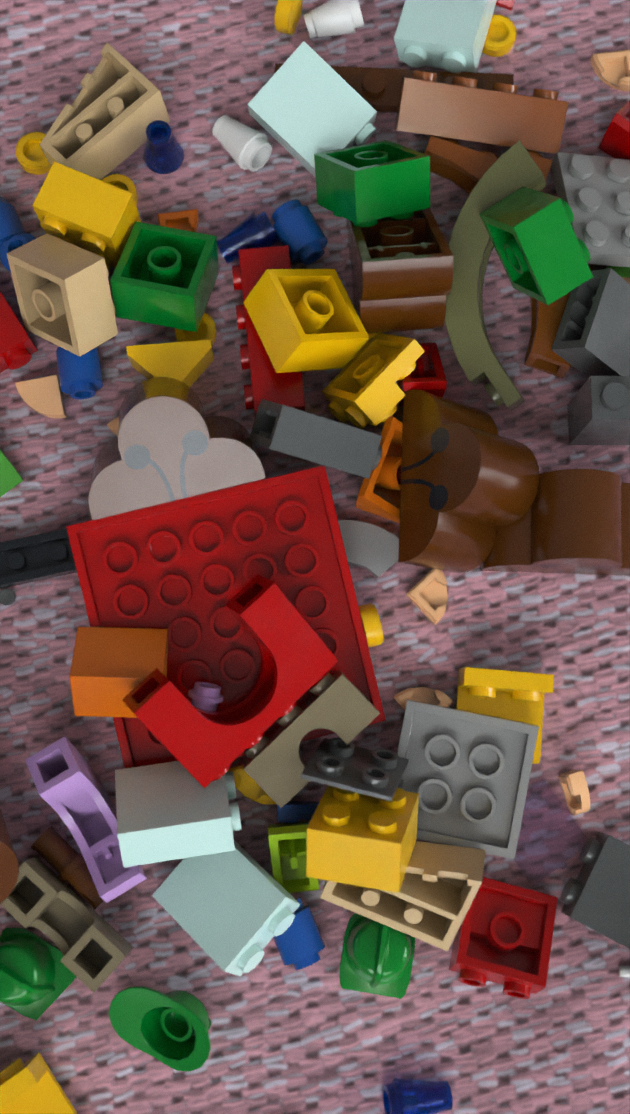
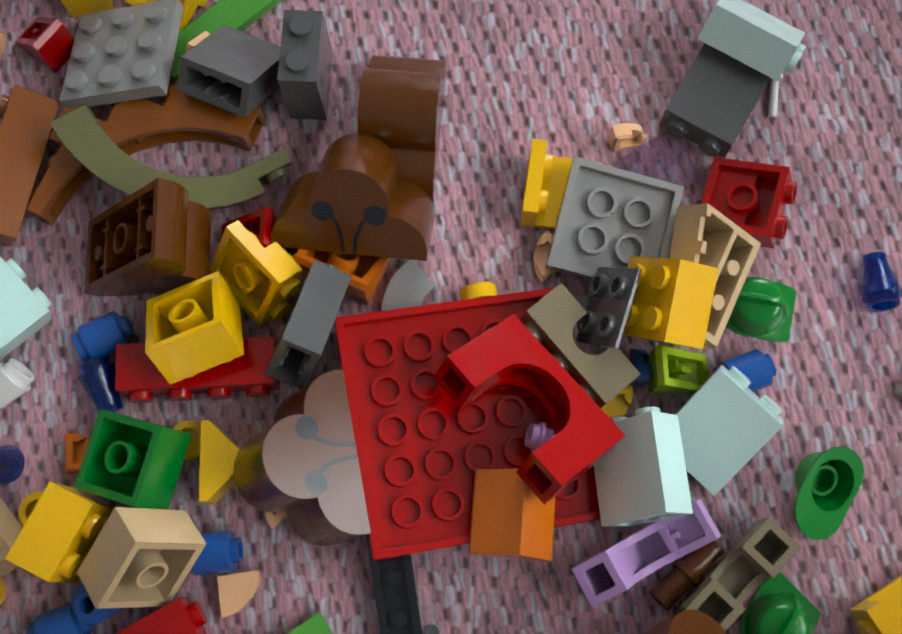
camera: 80 degrees left, 5 degrees down
(373, 182) = (65, 261): green brick -> none
(431, 595) = (453, 243): light nougat tile -> none
(538, 244) = (150, 114): green brick -> none

